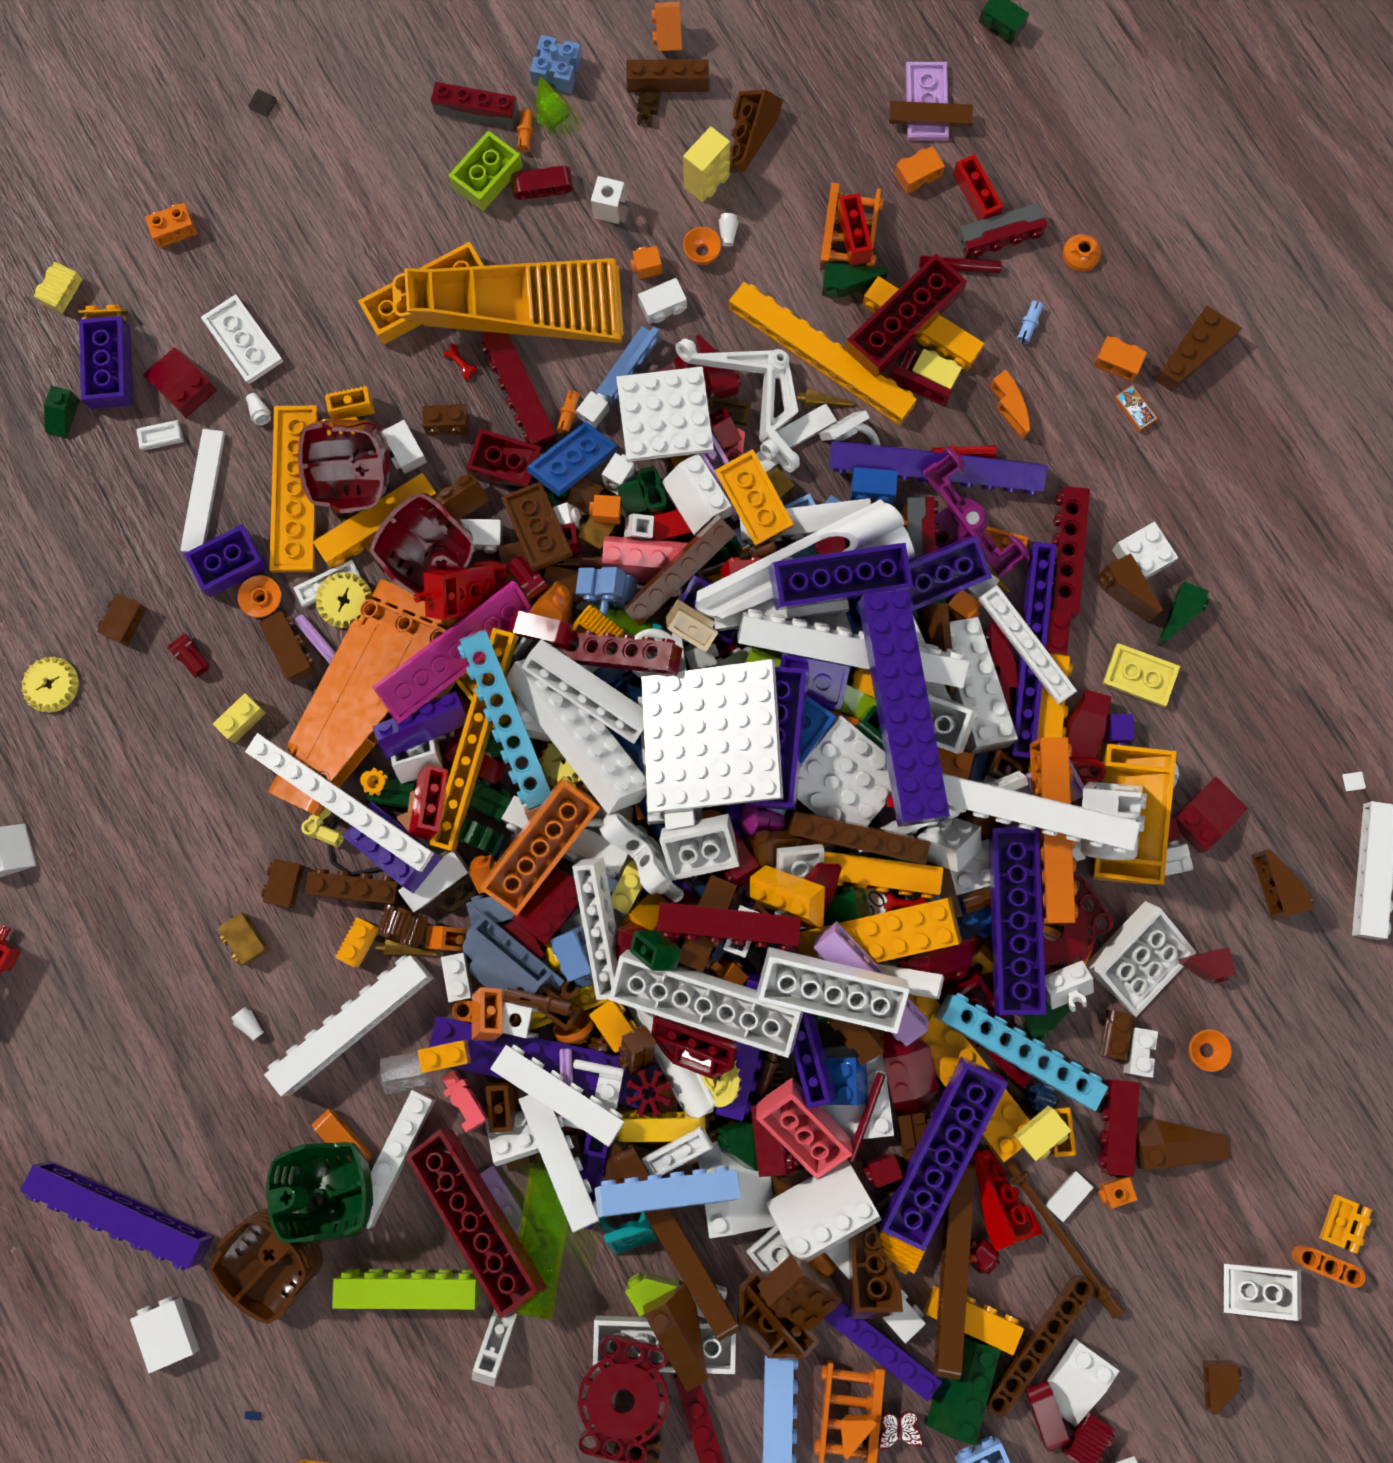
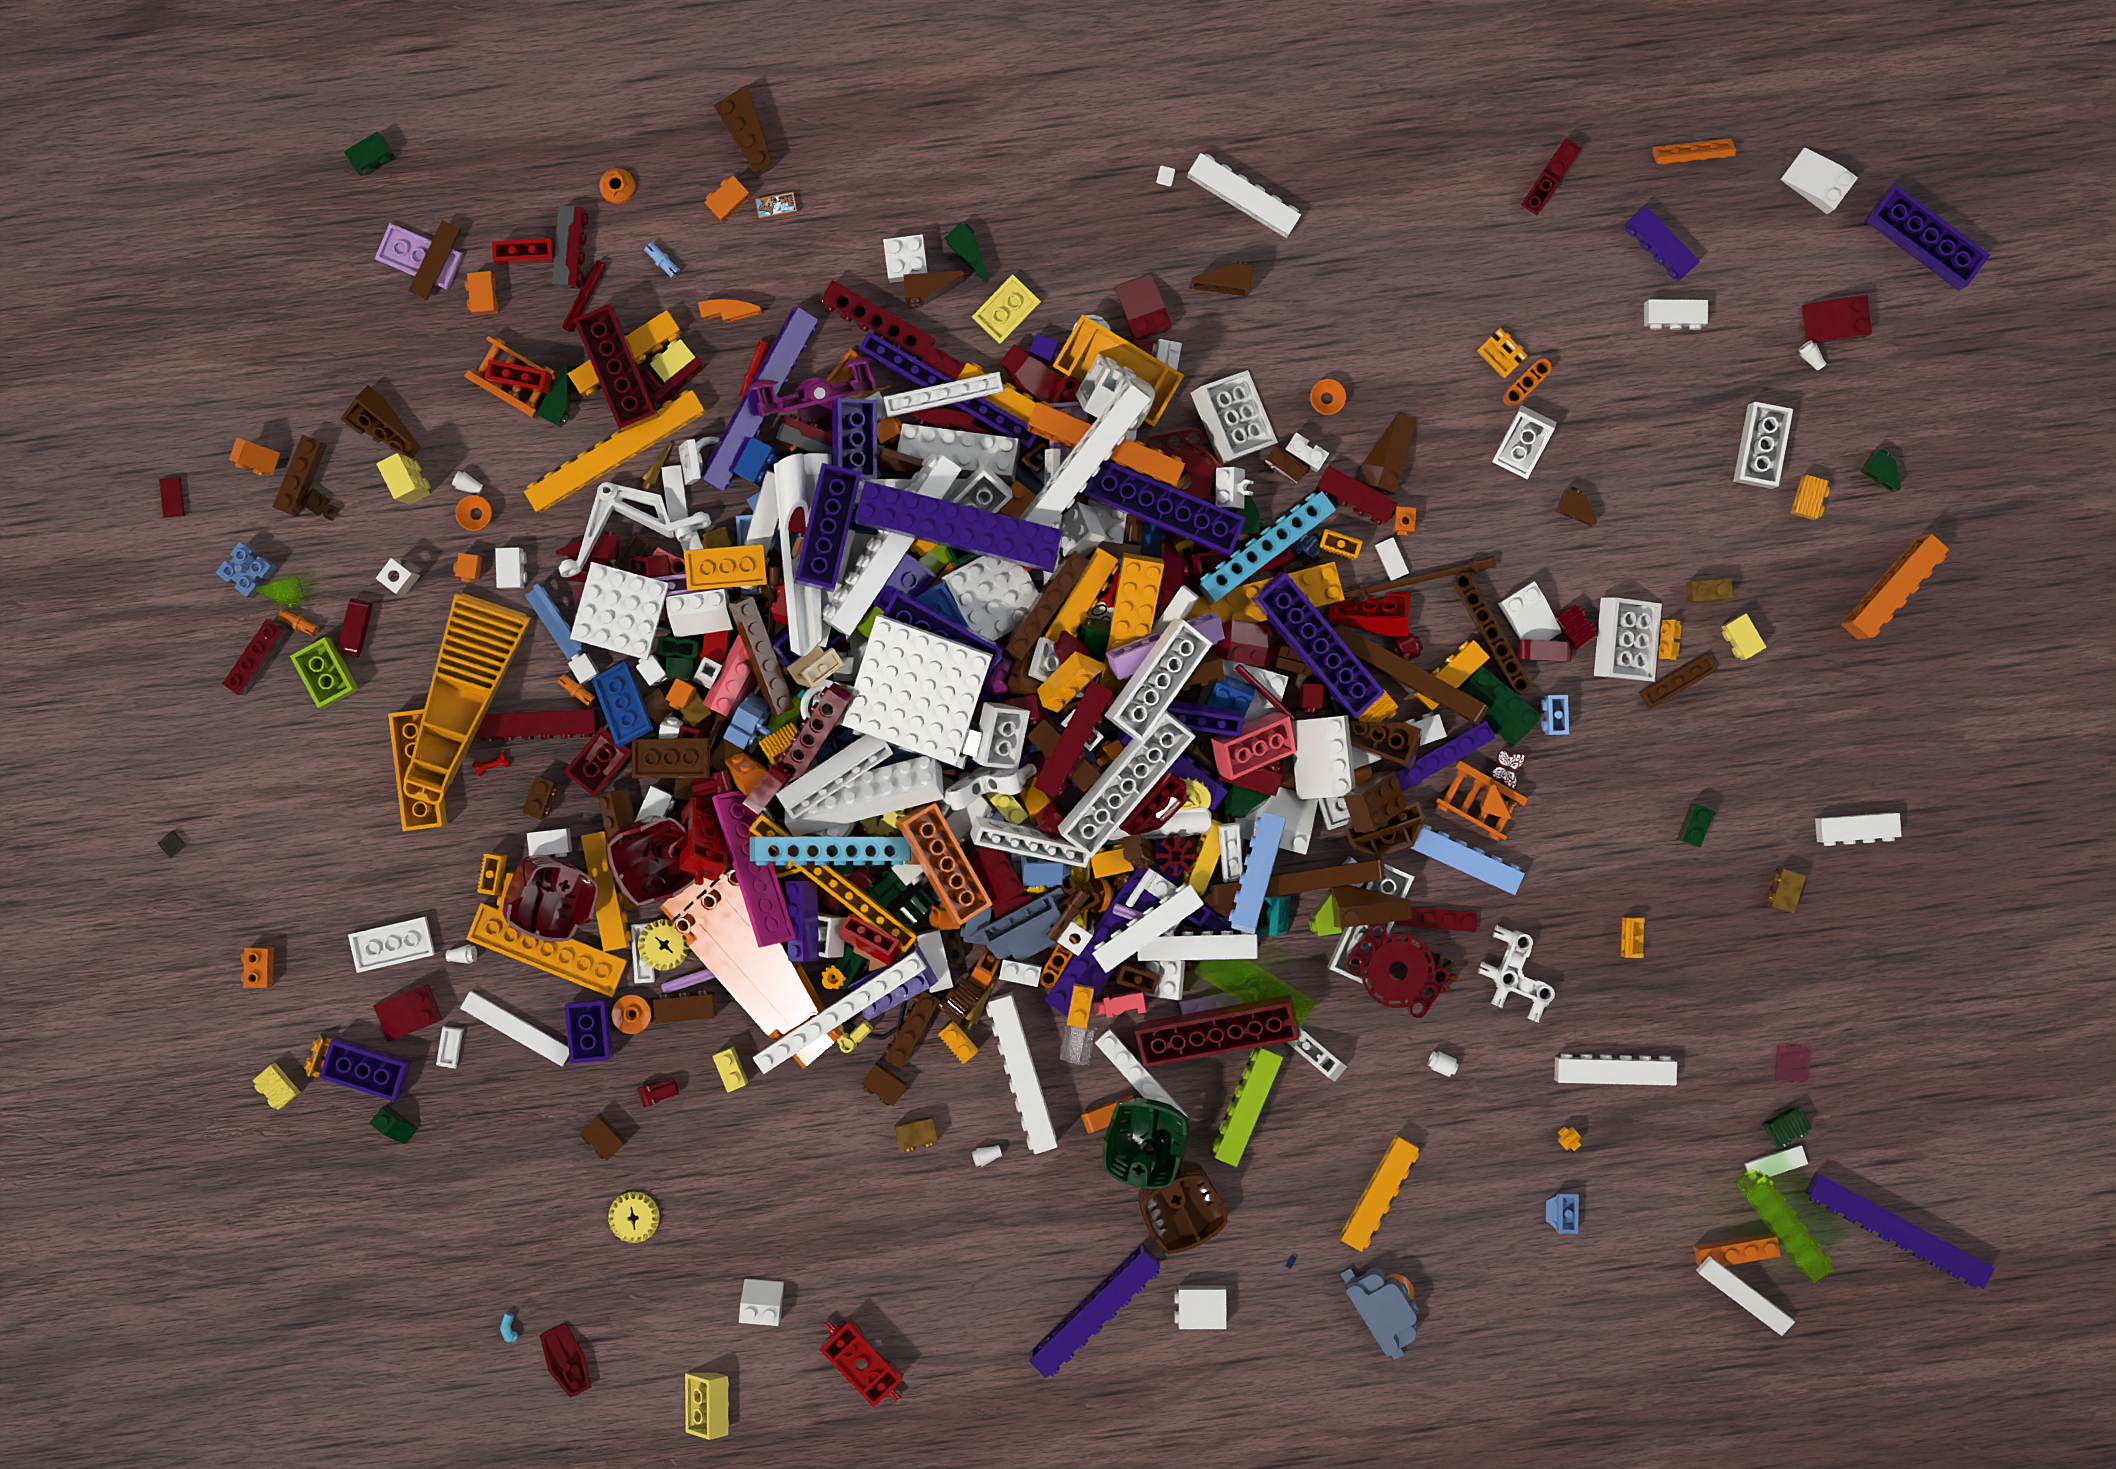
camera: 75 degrees left, 10 degrees up
(487, 1014) = (1060, 959): orange brick -> none
(655, 951) = (1068, 805): dark green brick -> none
(1042, 1133) = (1335, 560): light yellow brick -> none
(1211, 965) = (1262, 364): dark red slope -> none

